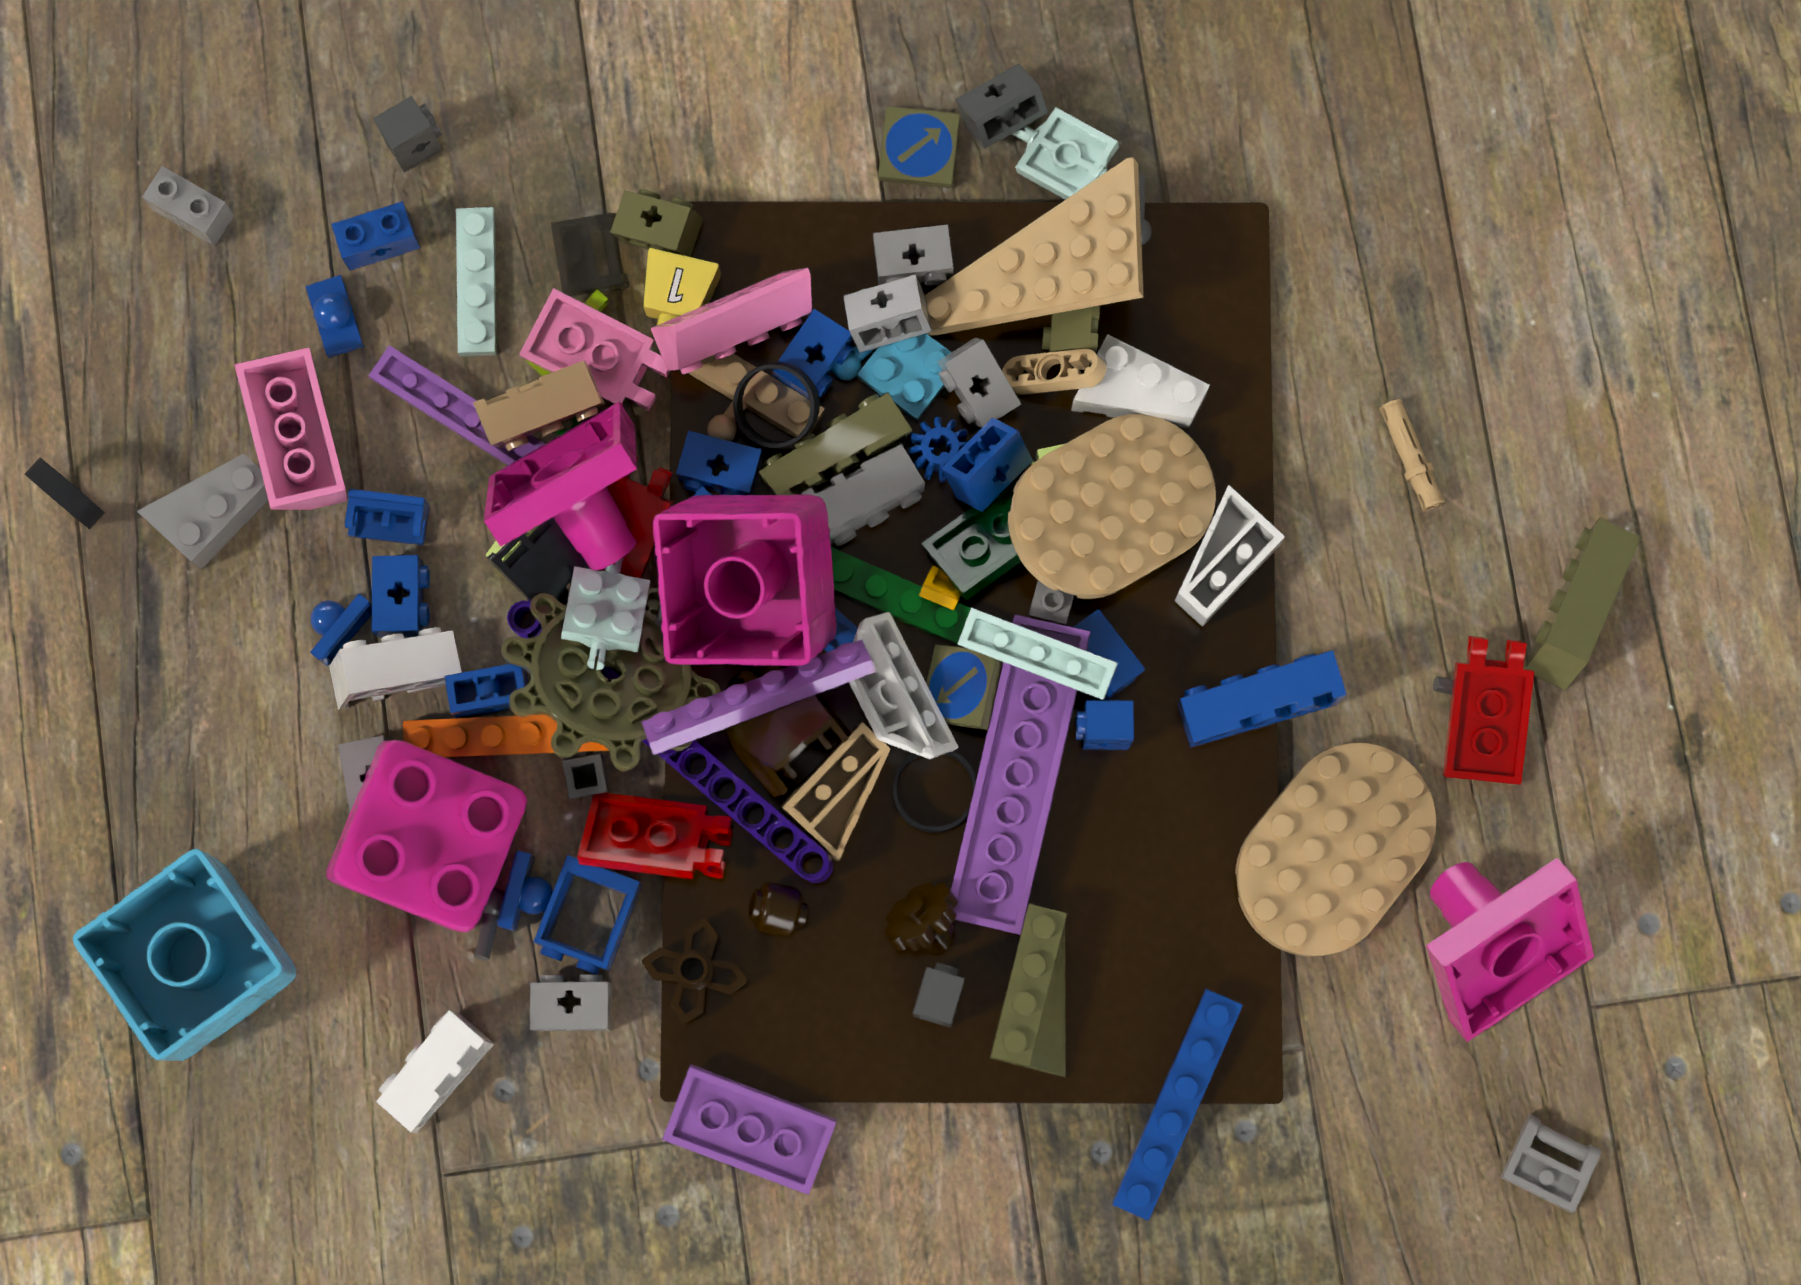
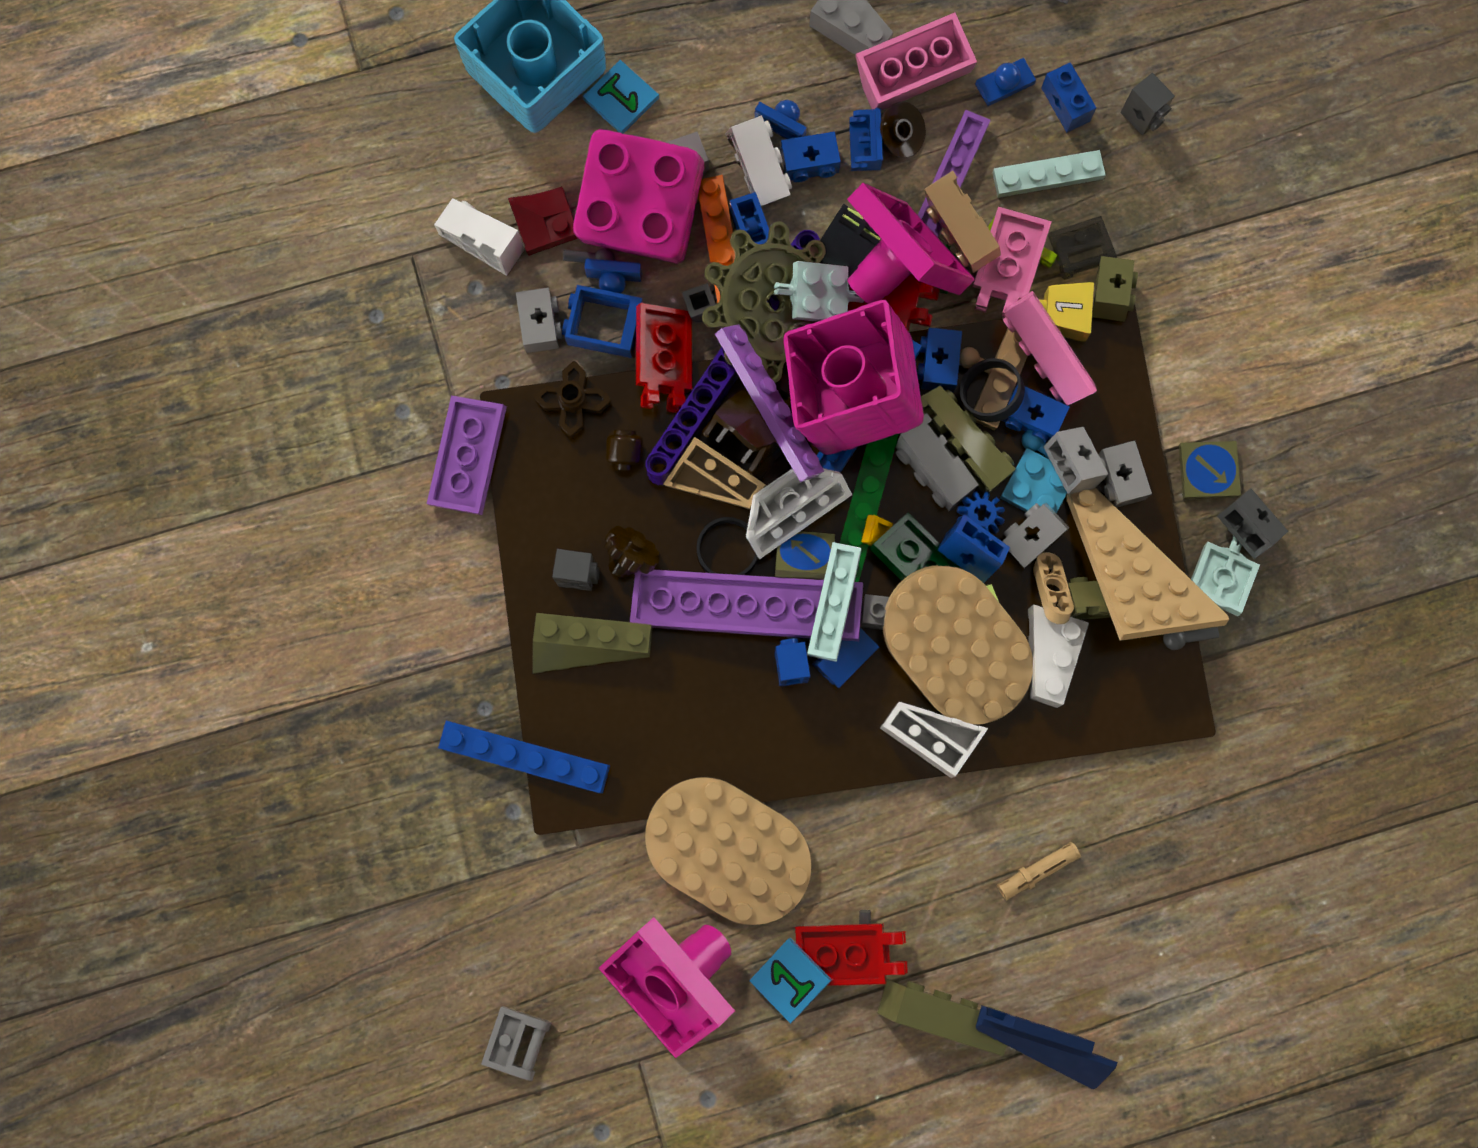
camera: 80 degrees right, 0 degrees up
(260, 846) = (621, 97): none -> dark azure tile
(382, 464) = (911, 128): none -> dark brown dish
(424, 978) = (543, 219): none -> dark red plate
(1261, 699) = (830, 776): blue wedge -> none
(1513, 792) = (790, 980): none -> dark azure tile
(1633, 479) = (1047, 1045): none -> dark blue wedge

